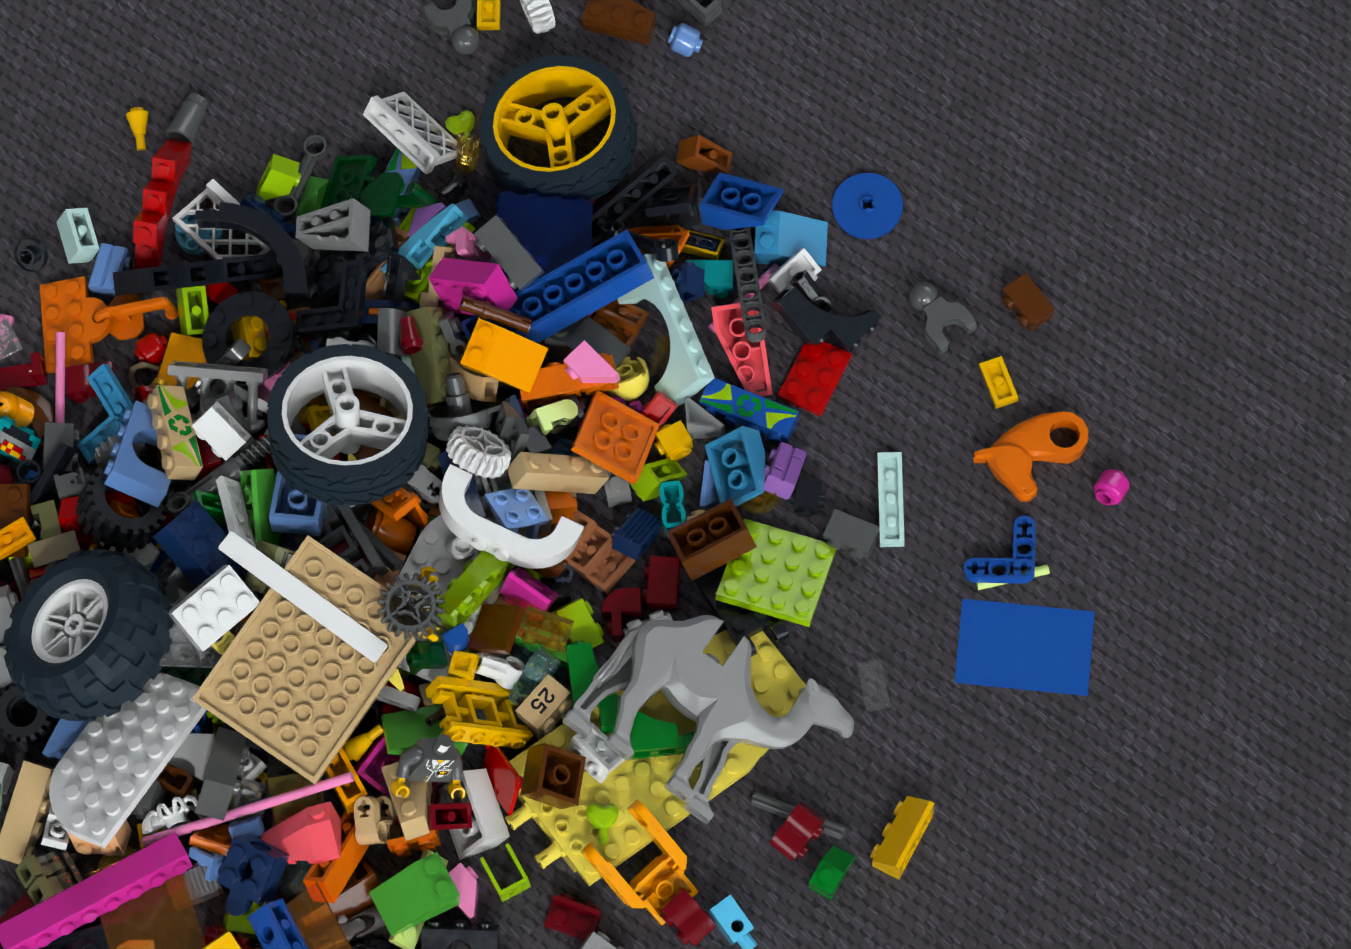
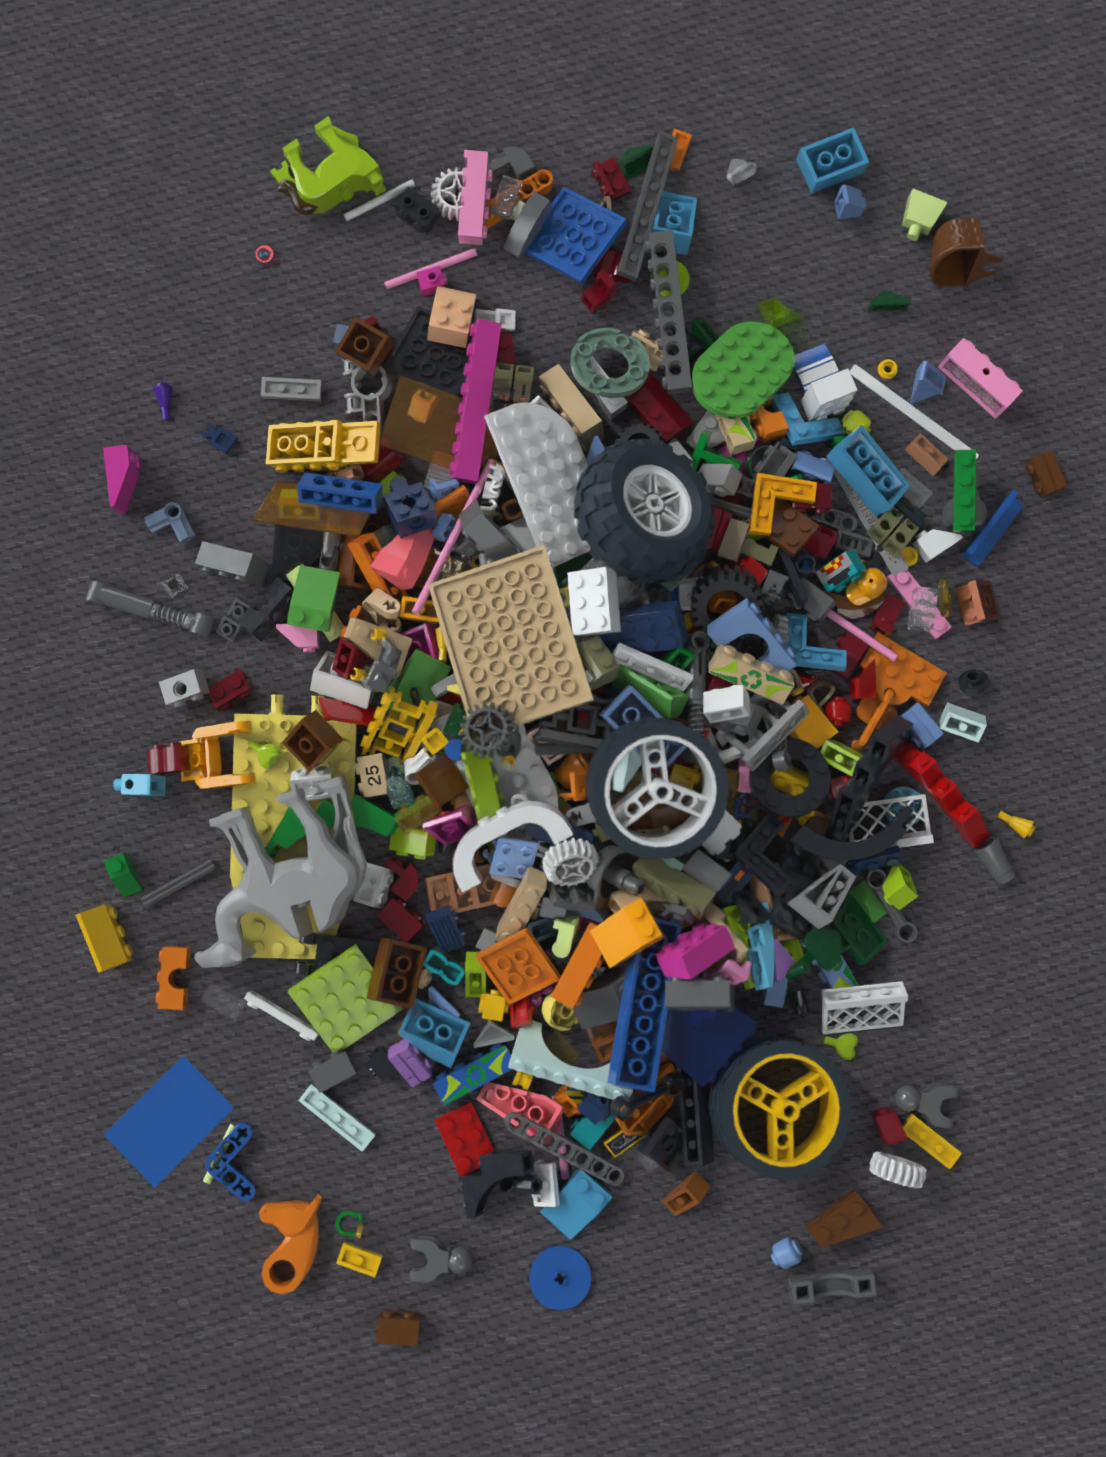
camera: 115 degrees right, 15 degrees up
(108, 345) = (864, 684): none -> red slope
(303, 596) = (554, 665): white sticker -> none
(409, 336) = (693, 880): dark red cone -> none
(467, 153) = (815, 1031): clear yellow arm -> none
(498, 315) = (664, 944): reddish brown pin -> none
(503, 36) = (888, 1126): none -> dark red slope
(513, 889) = (275, 666): lime piece -> none
(589, 366) = (573, 985): bright pink slope -> none
(701, 313) = (569, 1099): none -> orange brick
(719, 366) = (522, 1079): none -> yellow wheel
(738, 202) = (625, 1189): blue slope -> none
(797, 832) = (164, 872): dark red brick -> none
(846, 652) = (257, 1001): none -> white plate
(873, 759) = (169, 994): none -> orange arch
(969, 398) = (350, 1234): none -> green piece
(1111, 487) = (224, 1272): dark pink head -> none

